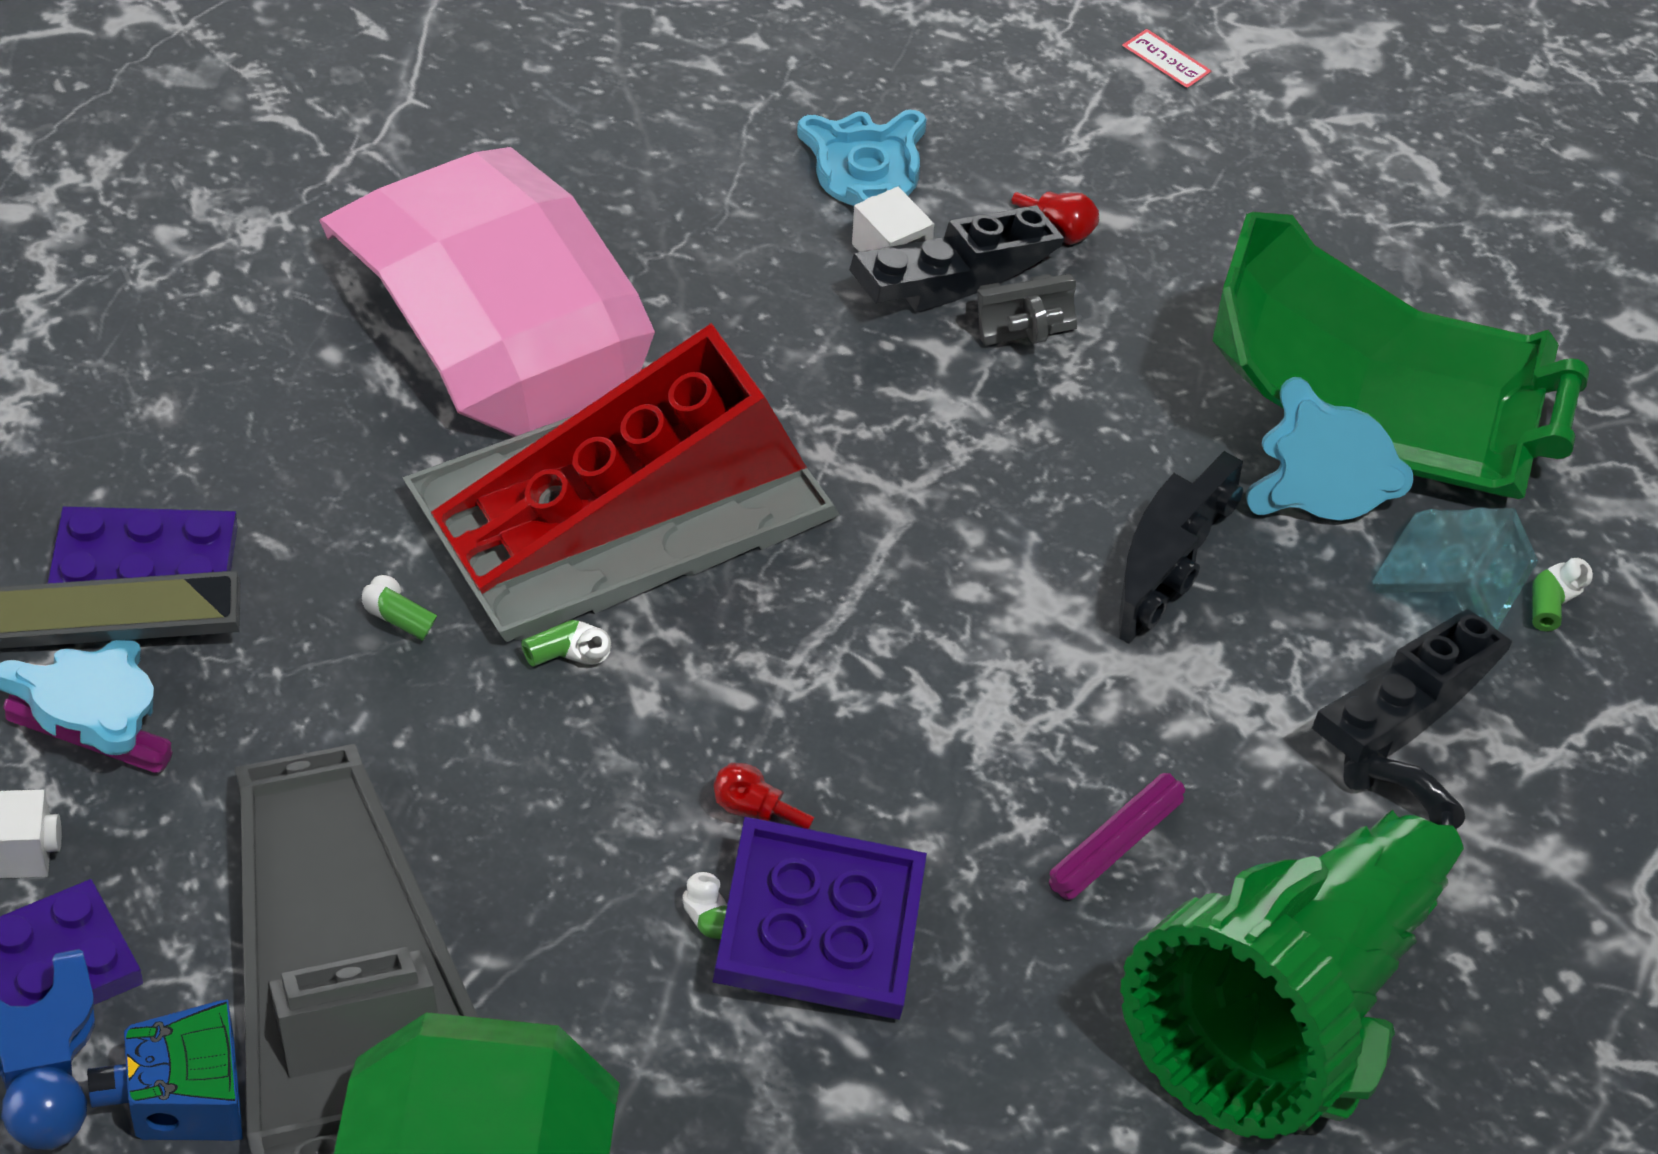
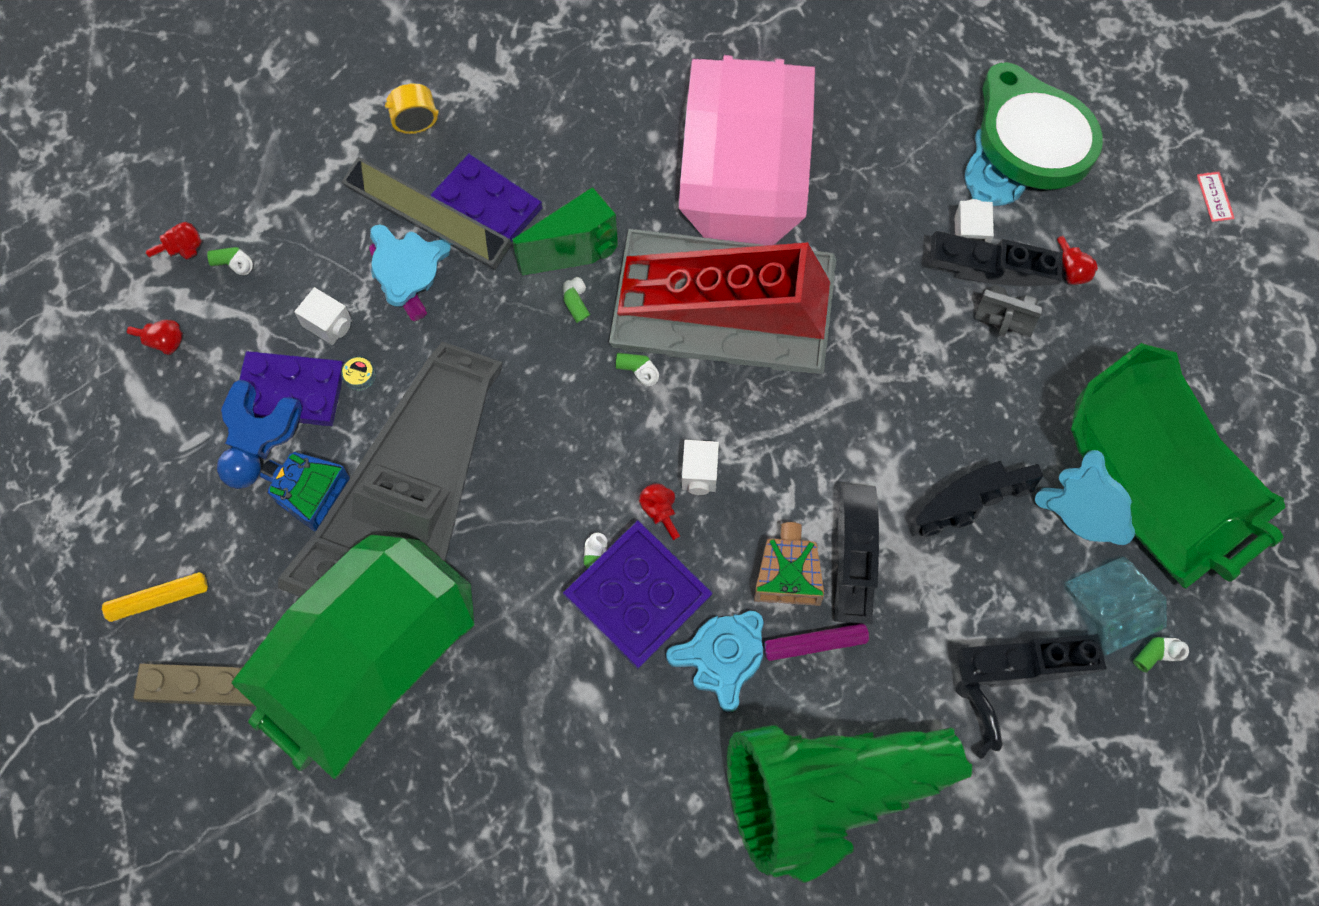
camera: 40 degrees right, 20 degrees up
(129, 885) = (358, 373): none -> tile
(331, 520) = (569, 236): none -> green slope
(769, 711) = (700, 466): none -> white brick
(876, 83) = (1037, 130): none -> piece
(1005, 927) = (725, 654): none -> medium azure tile
(1009, 766) = (790, 570): none -> torso
(1088, 687) = (857, 553): none -> black slope

